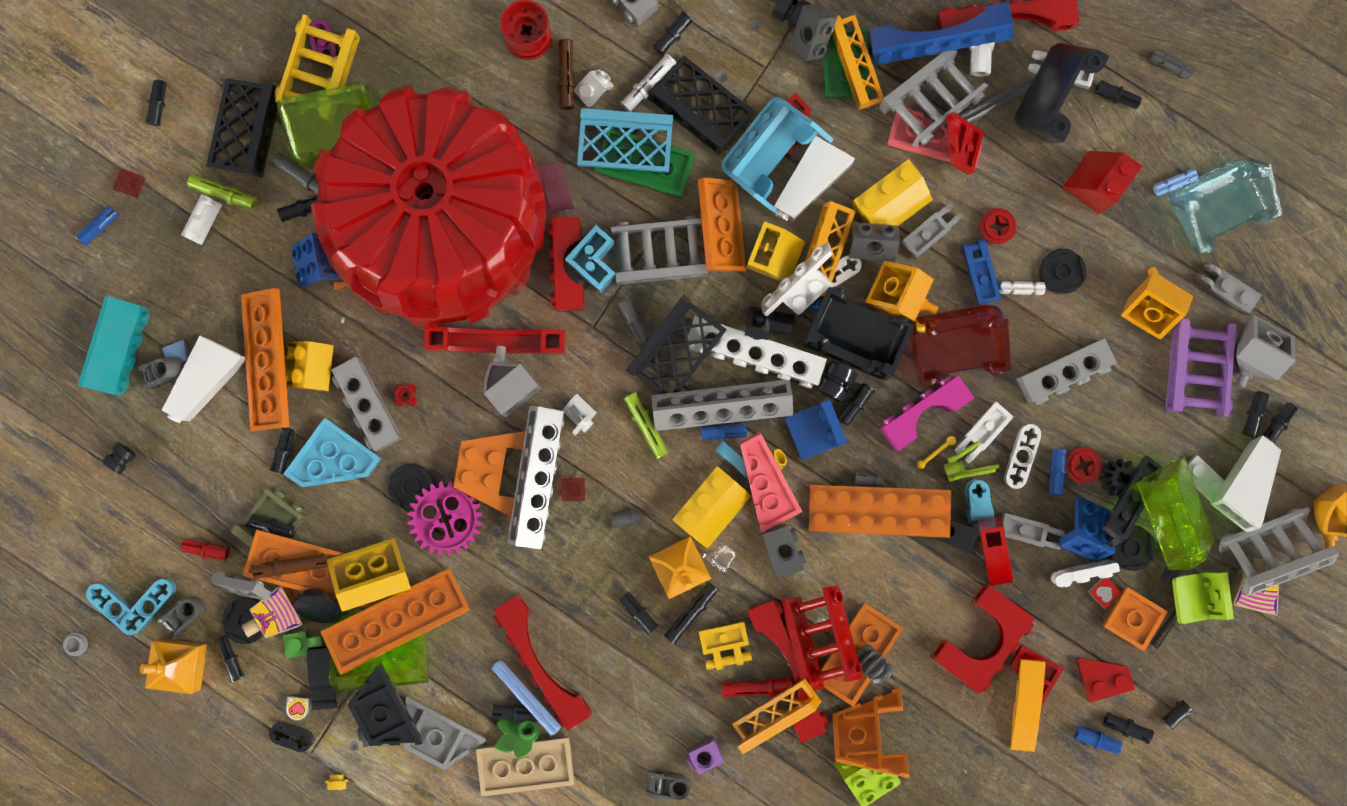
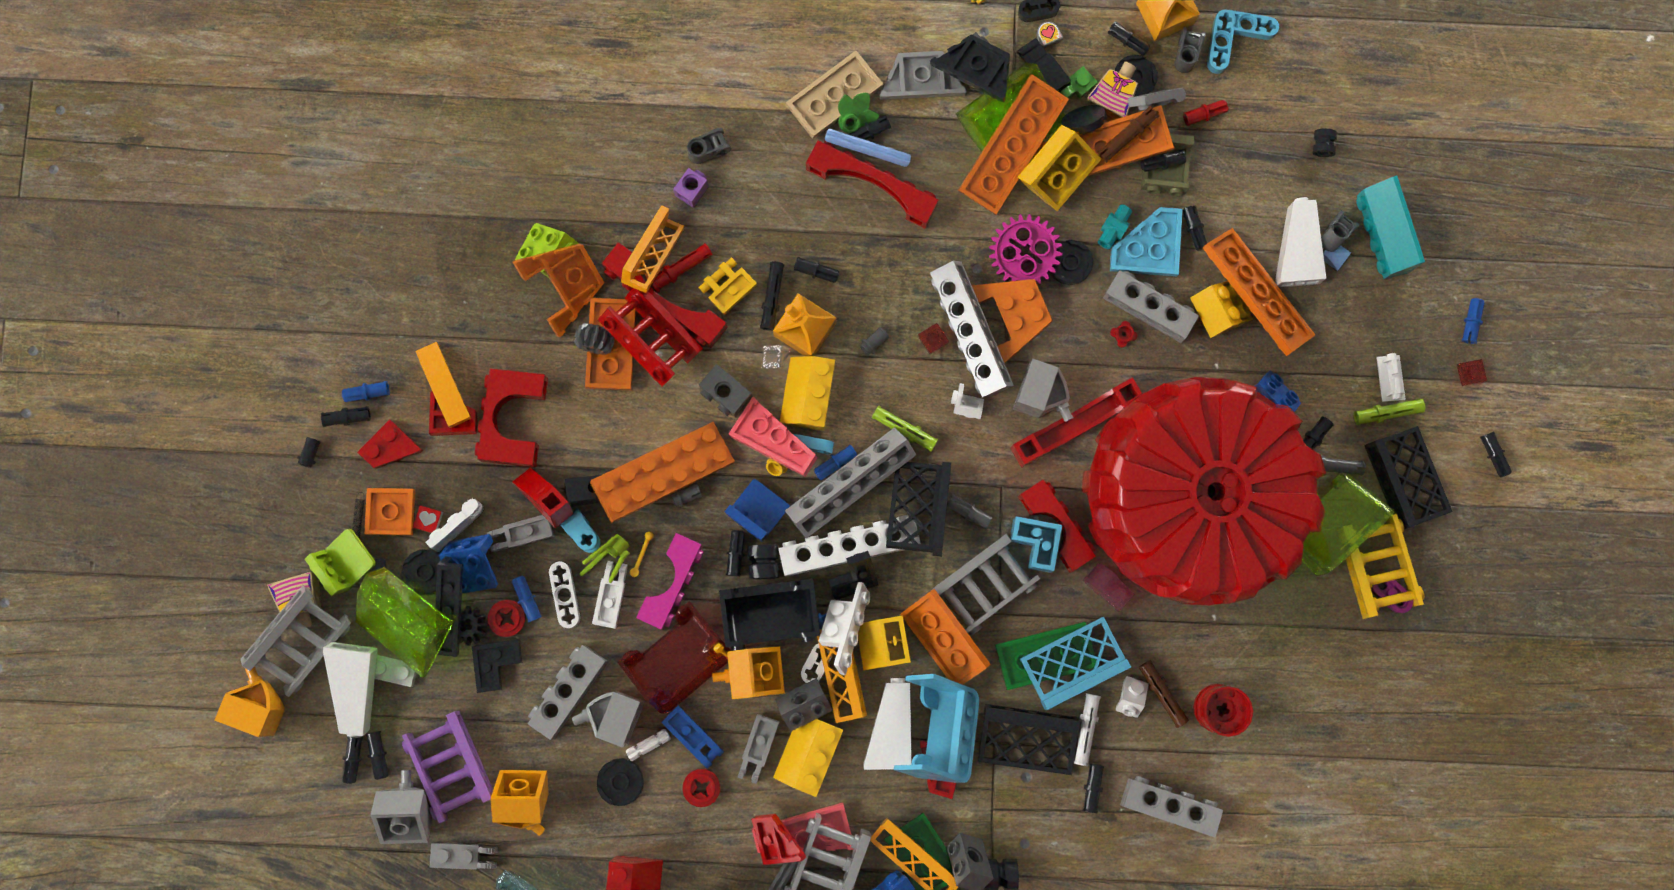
camera: 145 degrees right, 5 degrees down
(352, 493) = (1115, 226): none -> teal axle
(1042, 326) = (612, 717): none -> light grey piece
(1118, 438) = (488, 659): none -> black plate

